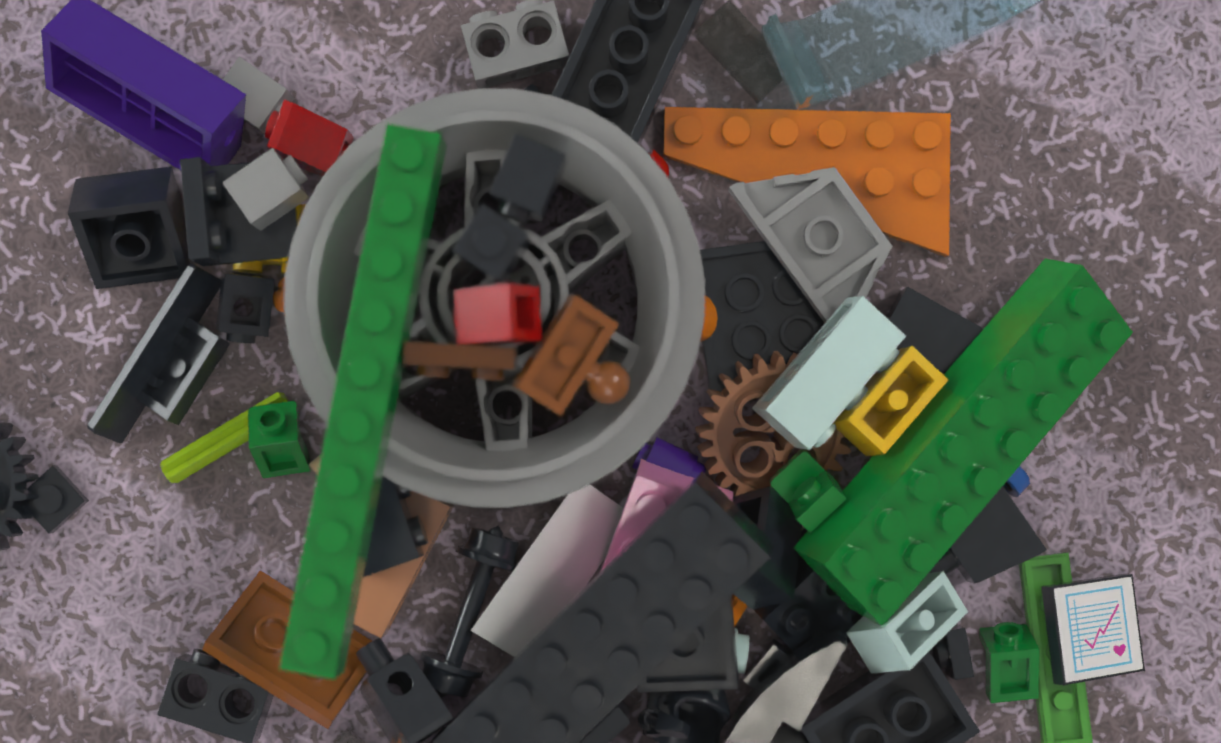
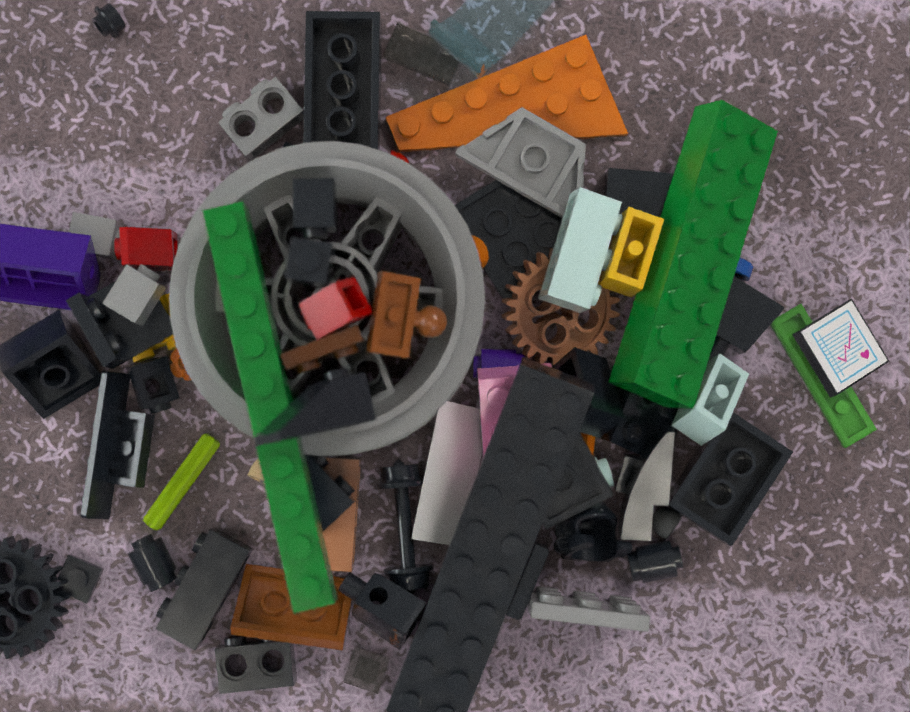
camera: 20 degrees left, 0 degrees up
(149, 519) = (152, 562): none -> black brick
(195, 577) = (202, 587): none -> black brick
(277, 439) = (218, 467): green bracket -> none
(426, 431) = (323, 407): none -> black slope
(807, 489) = (601, 337): green bracket -> none
(954, 654) = (751, 407): black plate -> none
(1010, 662) = (794, 396): green bracket -> none

